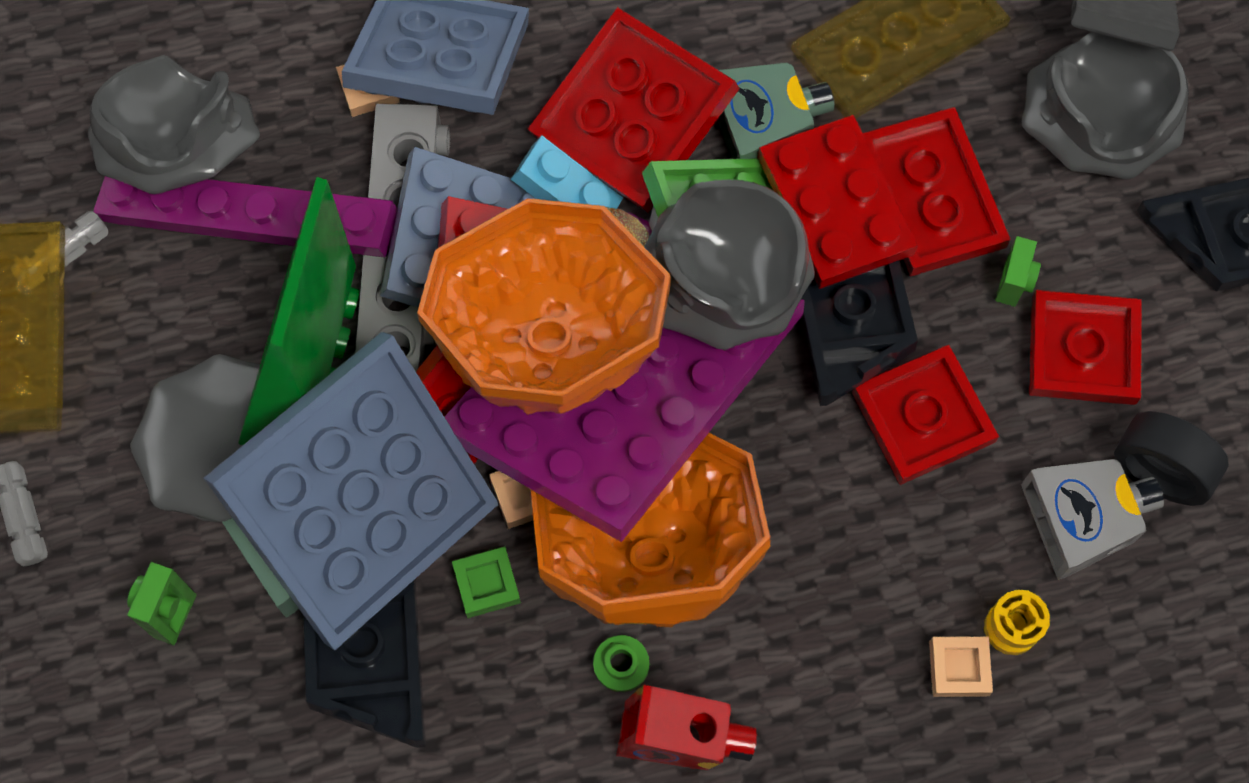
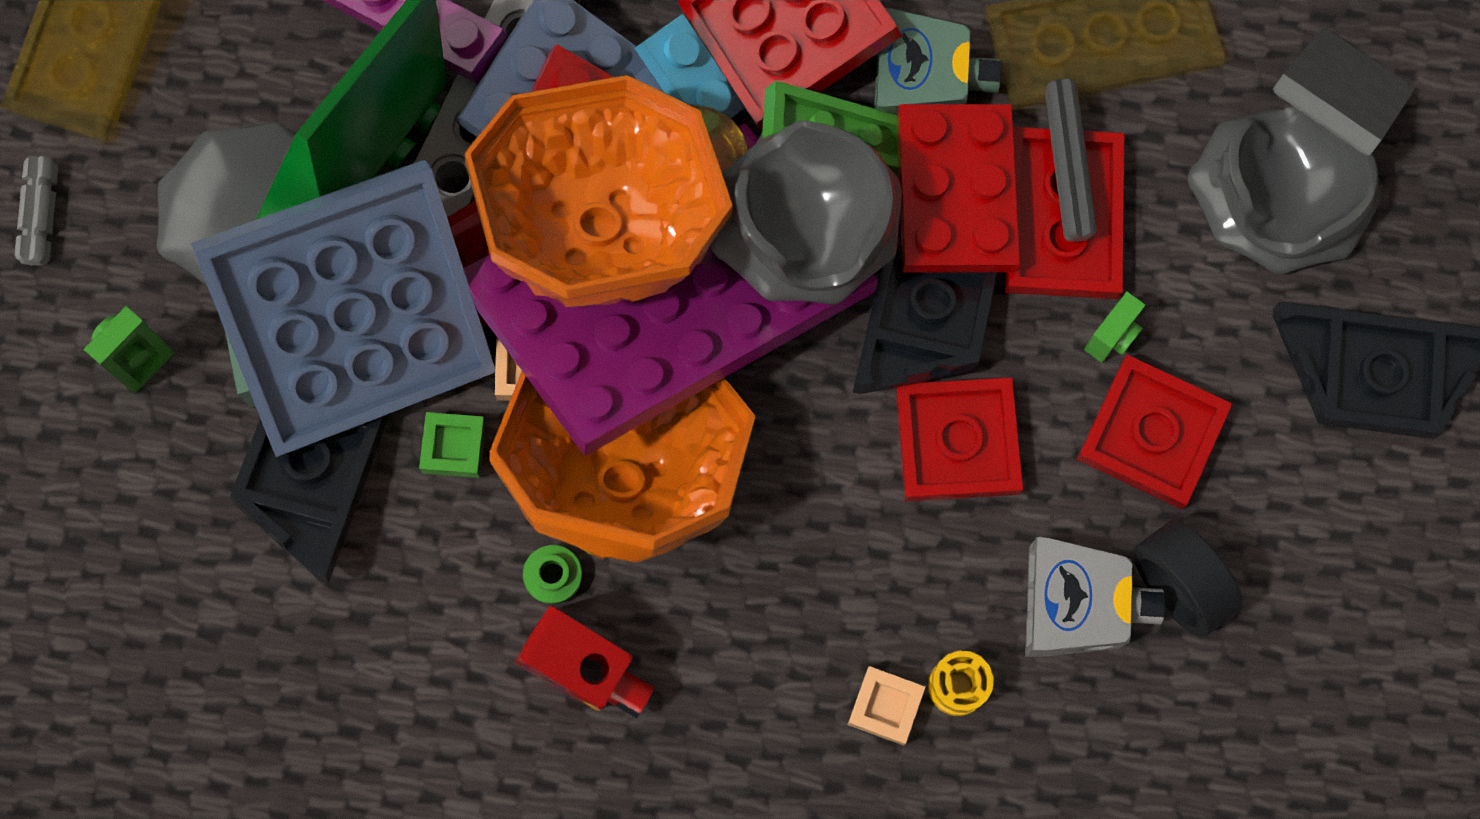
camera: 20 degrees right, 5 degrees up
(922, 144) = (1070, 160): none -> dark grey axle

